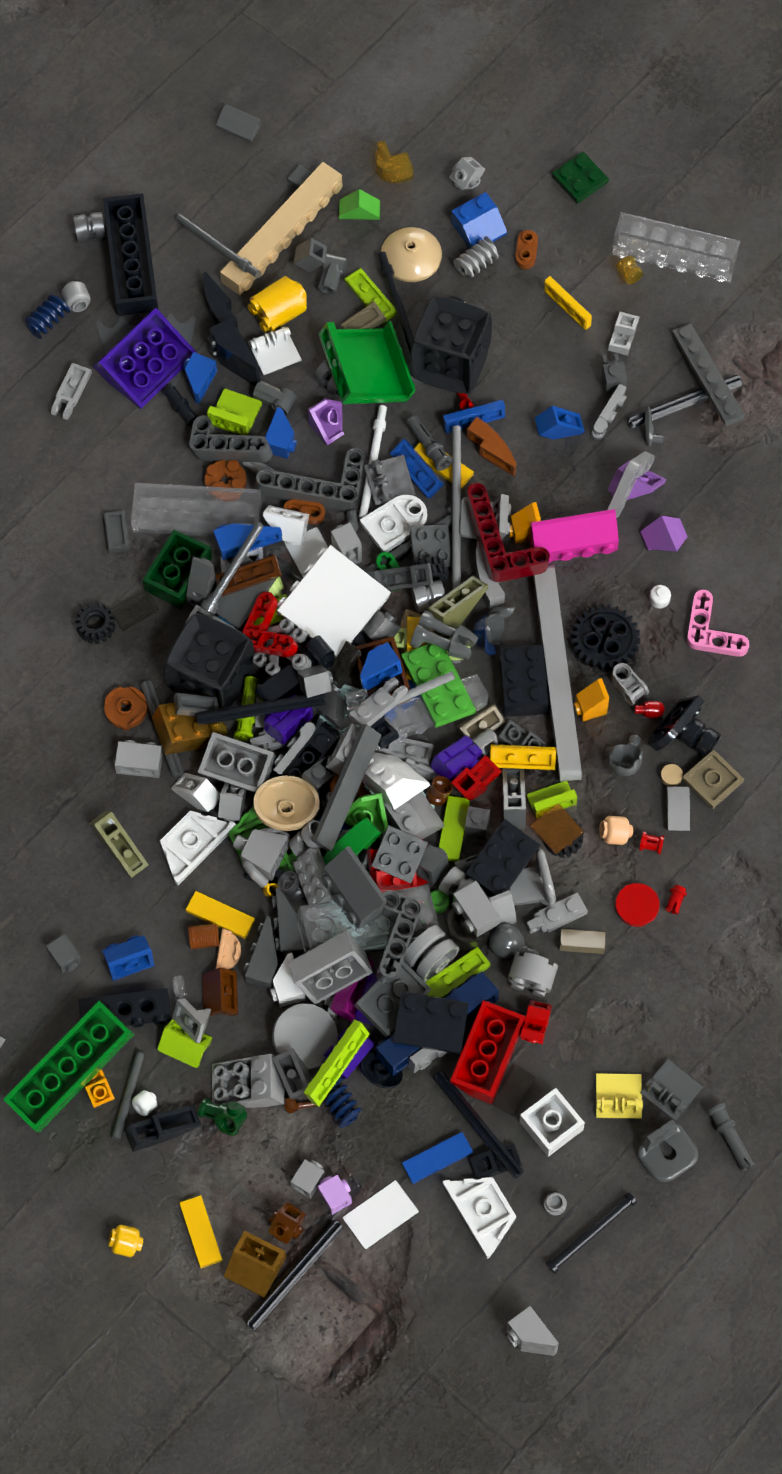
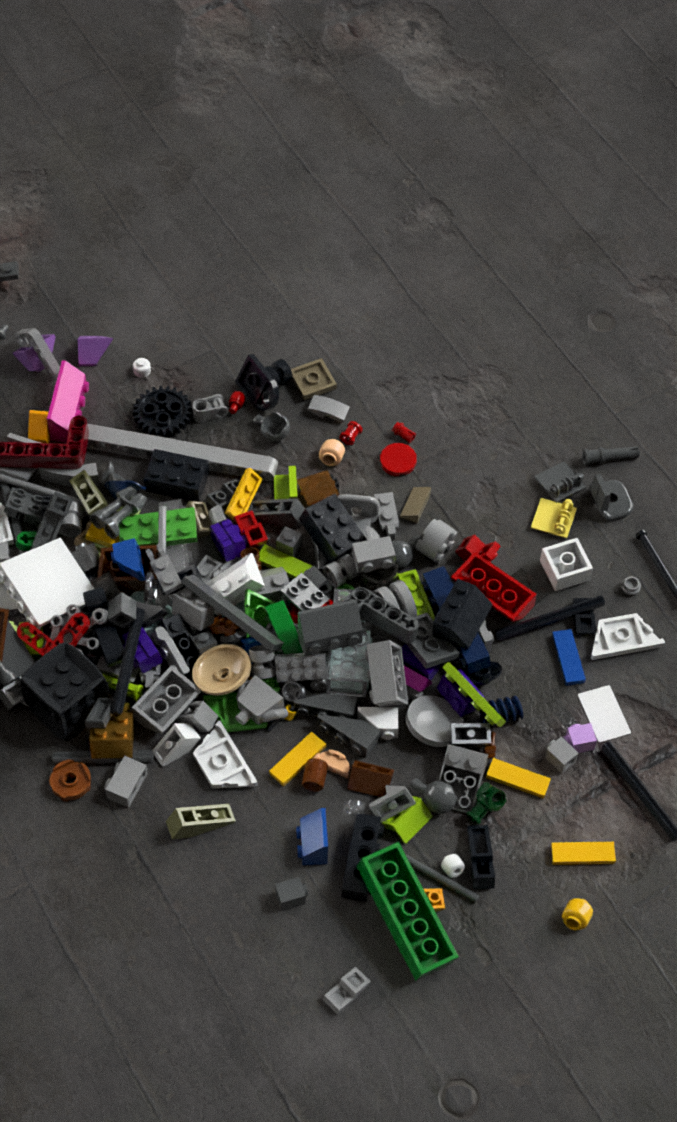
camera: 75 degrees left, 10 degrees down
(215, 1062) = (437, 796): none -> dark grey hair
(254, 1264) = (627, 814): pearl gold slope -> none
(268, 1143) = (518, 778): none -> yellow tile
(287, 1223) = (598, 779): reddish brown brick -> none
(592, 701) = (216, 429): light orange slope -> none
(671, 775) = (297, 405): tan tile -> none
(706, 635) = (188, 348): bright pink beam -> none

